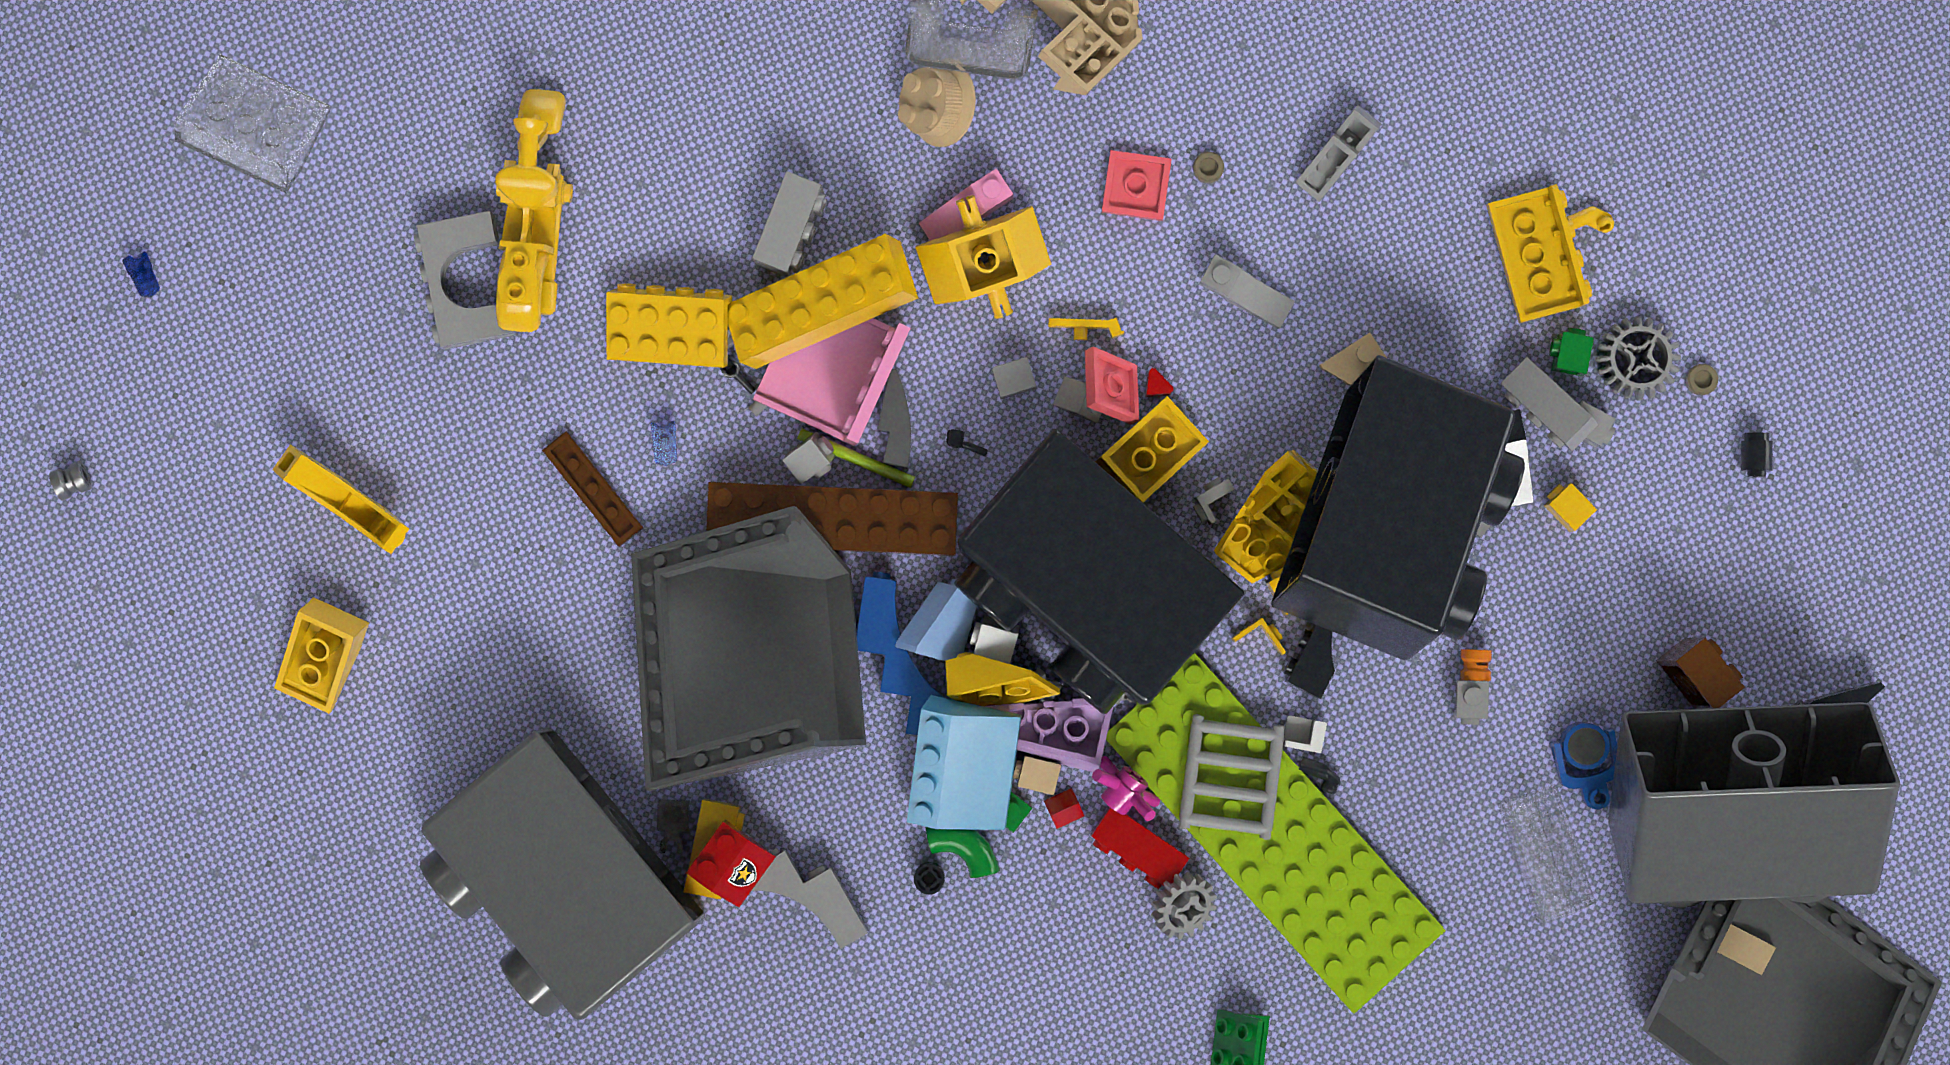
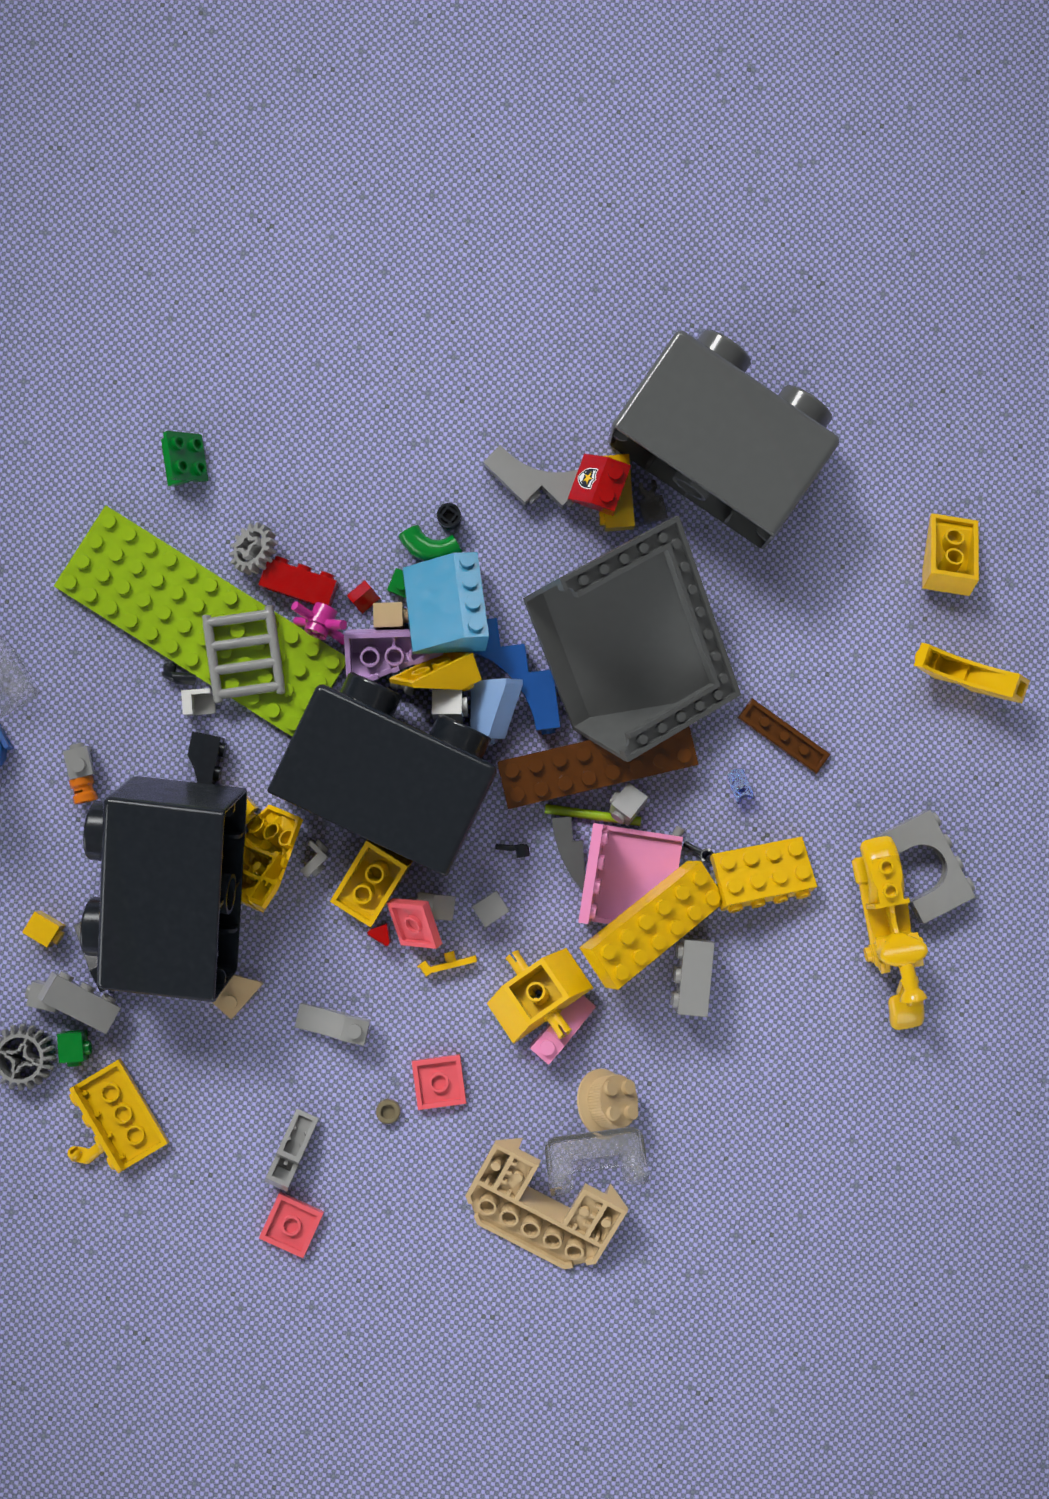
camera: 165 degrees right, 0 degrees up
(1270, 631) = (244, 771): yellow bracket -> none
(1364, 63) = (291, 1224): none -> coral tile

